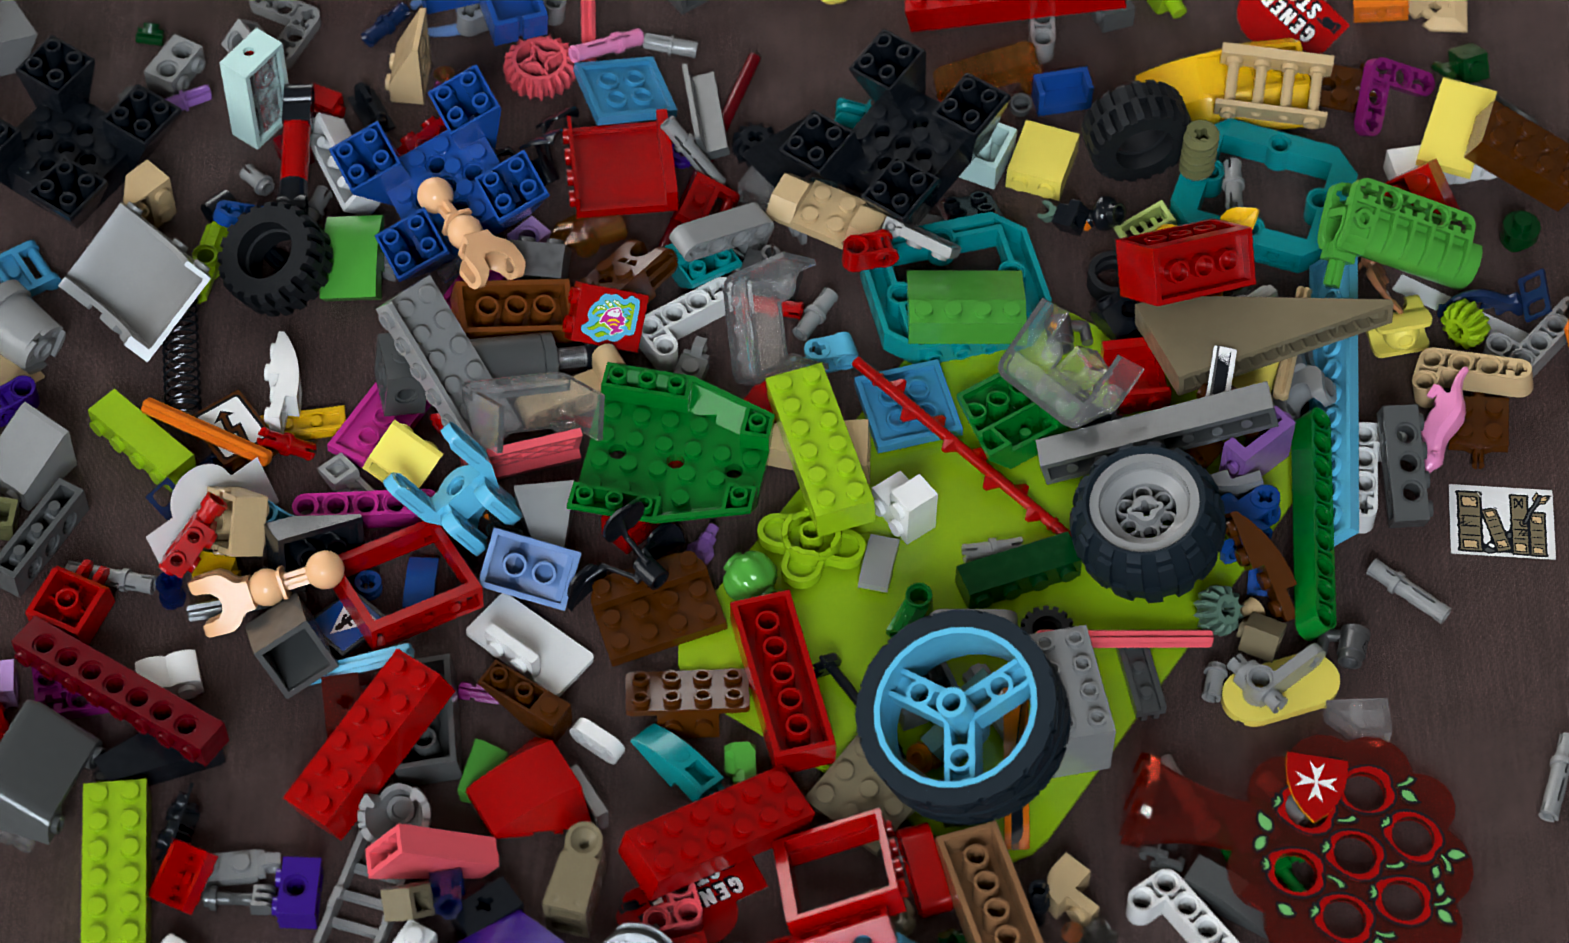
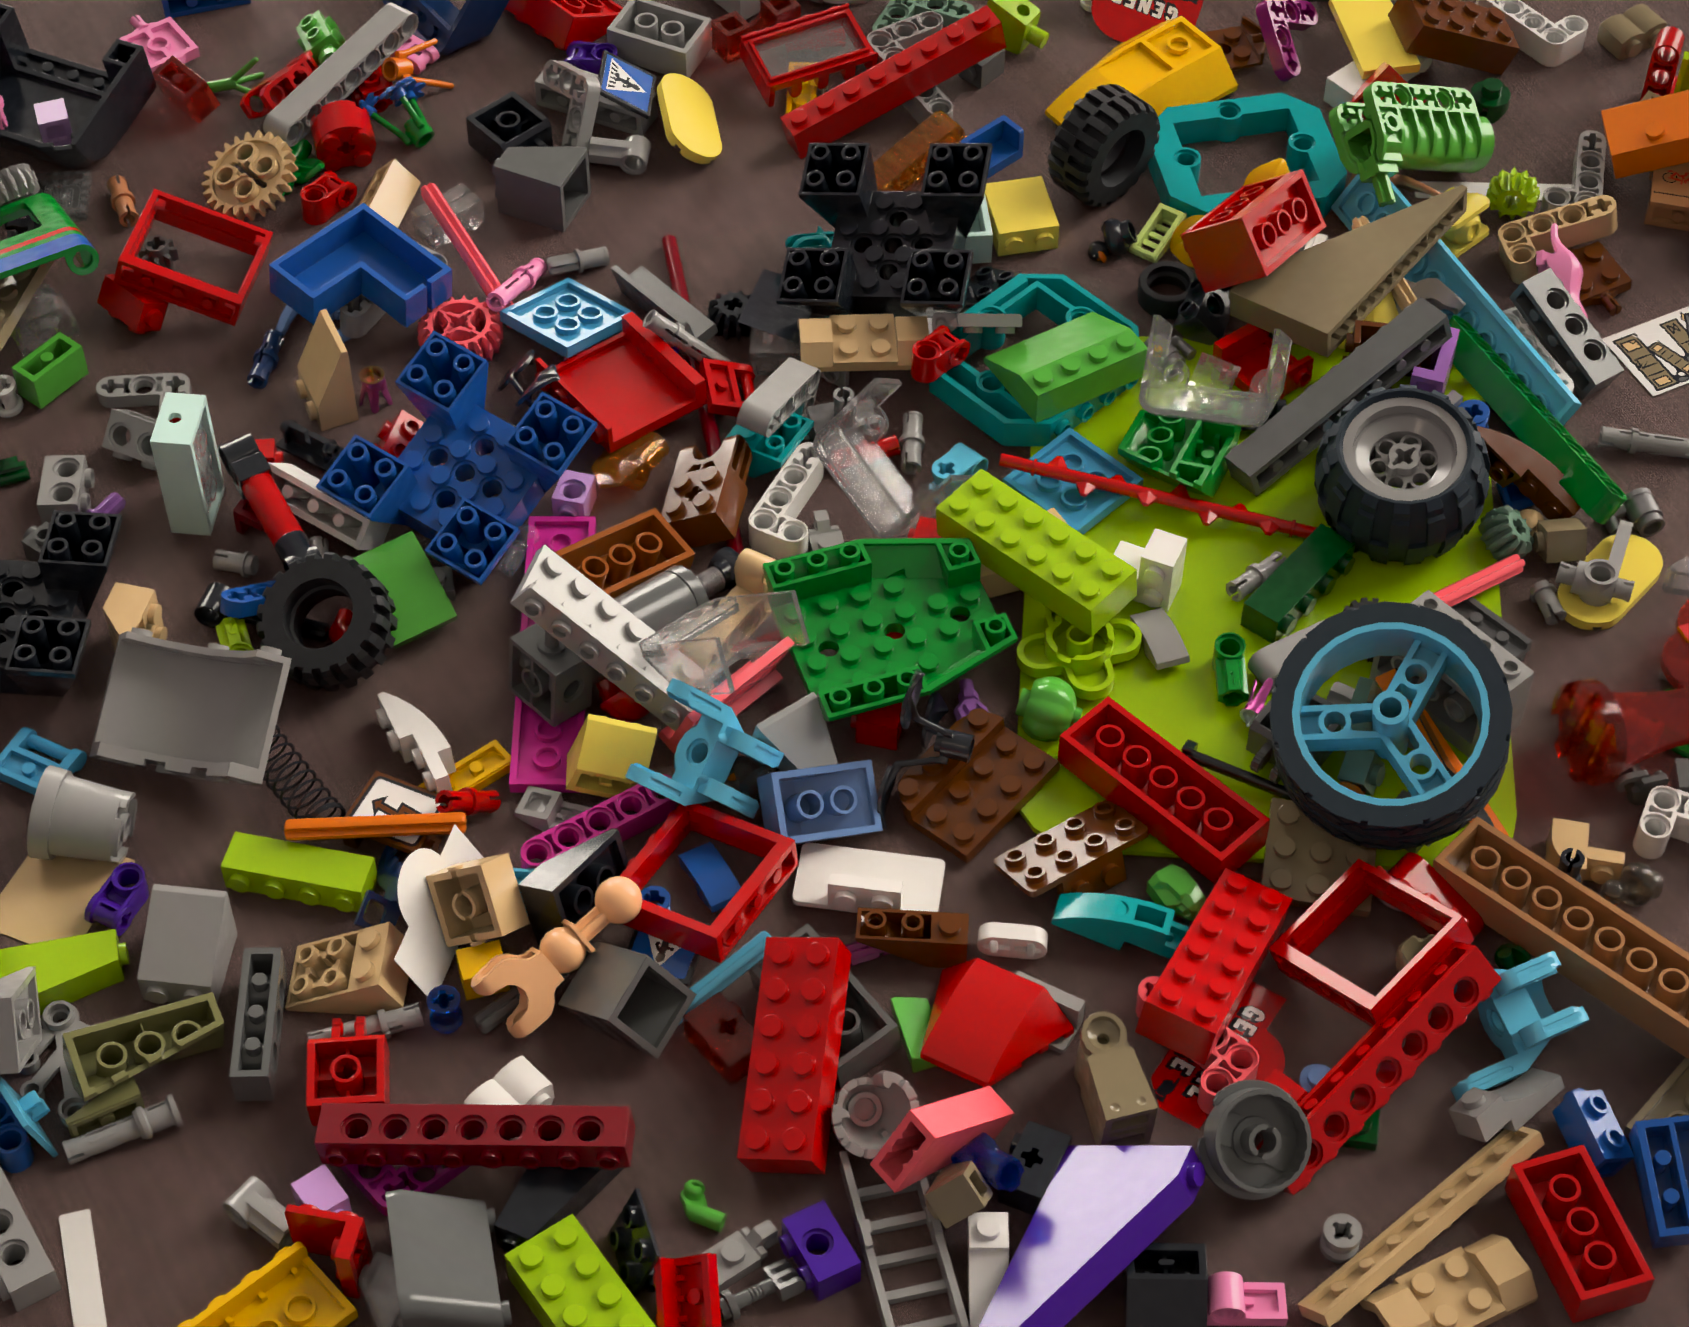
camera: 30 degrees left, 5 degrees down
(120, 531) = (349, 973): none -> tan slope
(195, 535) = (451, 940): red brick -> none
(242, 819) = (696, 1207): none -> bright green arm
(477, 247) = (547, 514): light nougat piece -> none
(544, 259) = (607, 503): flat silver brick -> none
(605, 316) = (721, 524): panel -> none
(1066, 217) = (1085, 254): black piece -> none
(1199, 150) = (1175, 138): olive piece -> none
(1221, 370) = (1361, 312): sticker -> none
(1233, 183) = (1221, 159): light grey pin -> none
(1283, 60) = (1195, 34): tan fence -> none
(1514, 302) = (1537, 158): dark blue piece -> none

